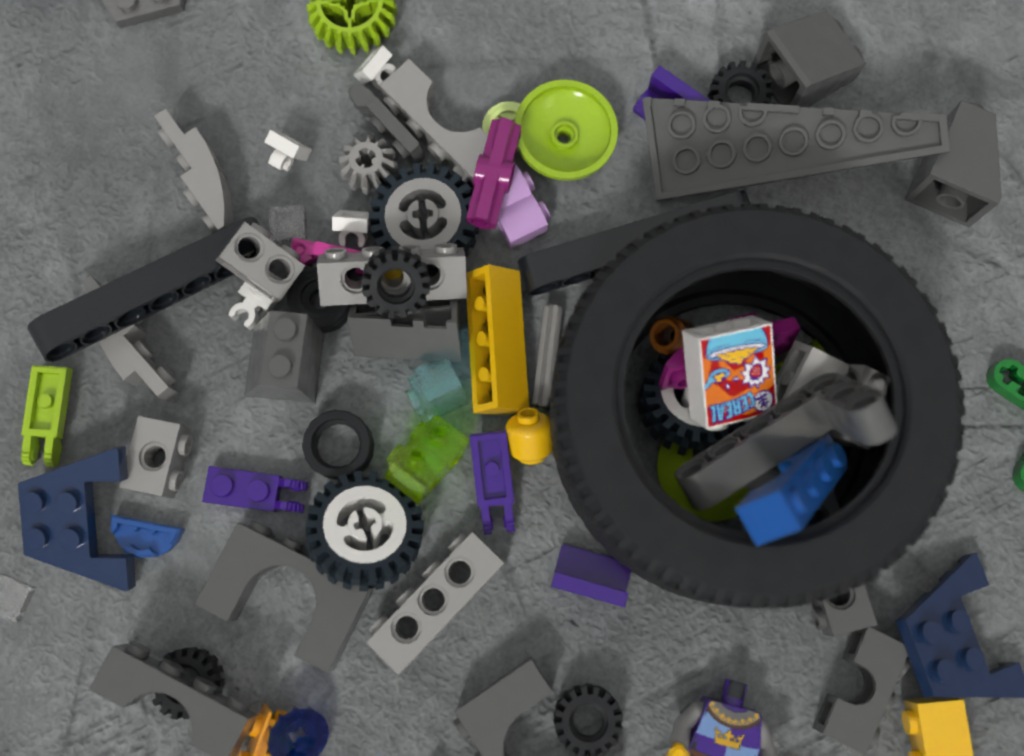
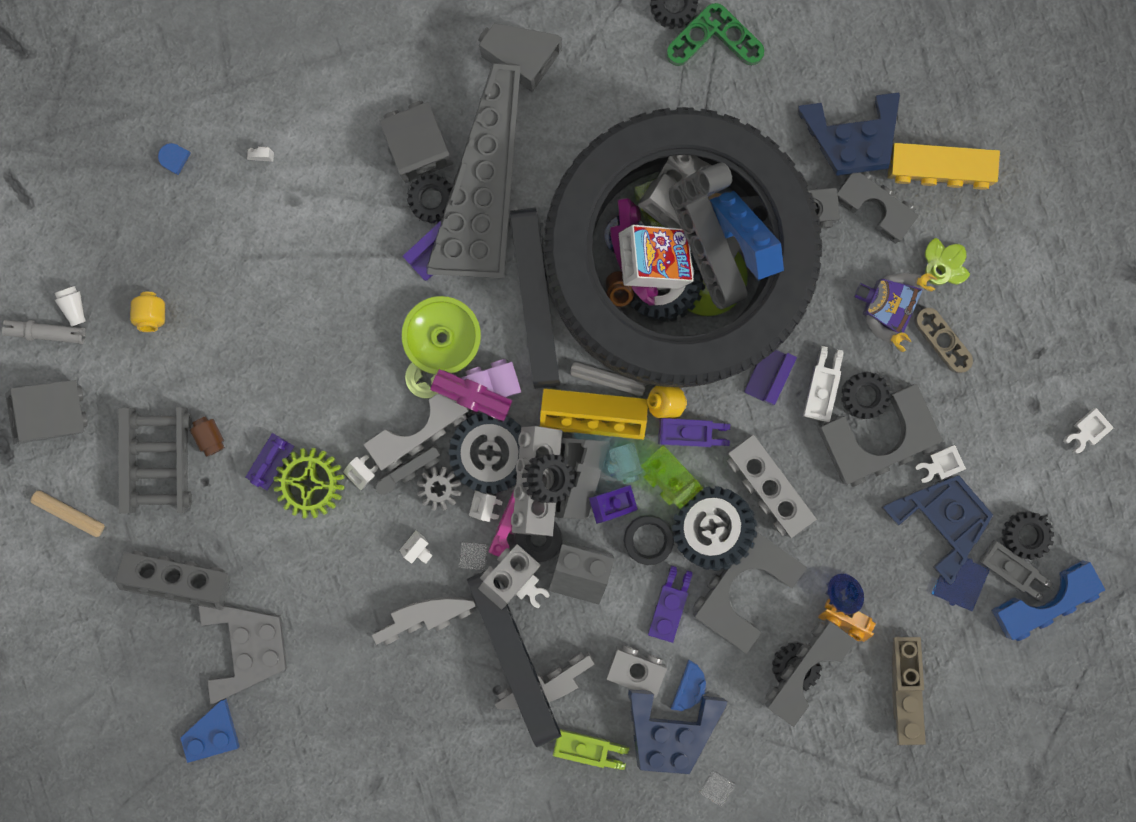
camera: 85 degrees left, 10 degrees up
(379, 387) = (613, 504): none -> dark purple slope
(588, 655) = (823, 387): none -> white hinge

